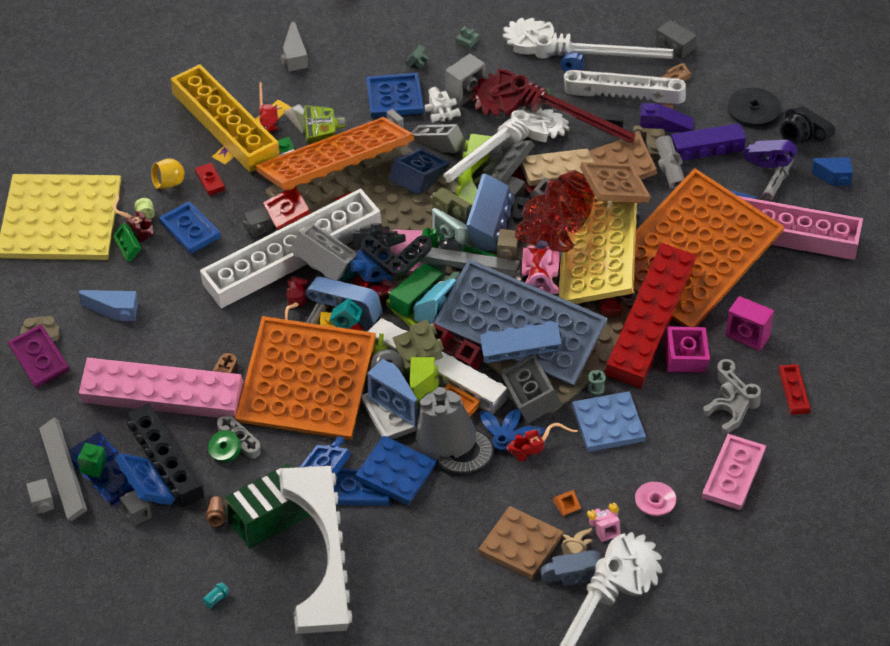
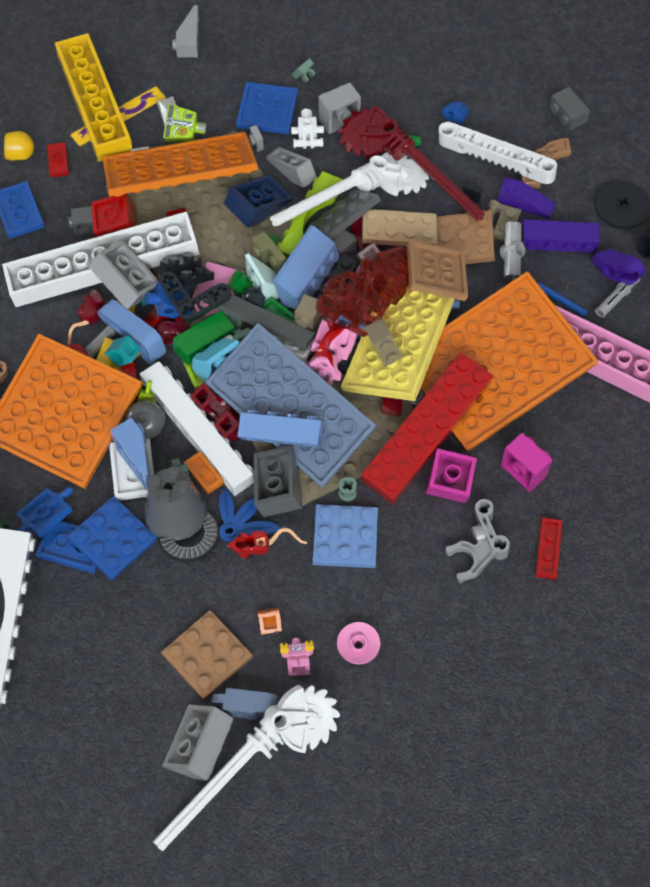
camera: 15 degrees right, 15 degrees up
(268, 114) = (136, 104): red animal -> none
(285, 145) = (140, 139): green plate -> none
(418, 343) = (180, 405): olive plate -> none
(423, 377) = (170, 444): lime slope -> none
(467, 38) = (362, 59): sand green tile -> none
(540, 39) = (431, 76): white piece -> none
(542, 608) = (198, 741): none -> light grey slope
(575, 544) = (257, 678): tan piece -> none
(588, 251) = (383, 342): none -> dark tan brick
(734, 472) = (451, 632): bright pink plate -> none

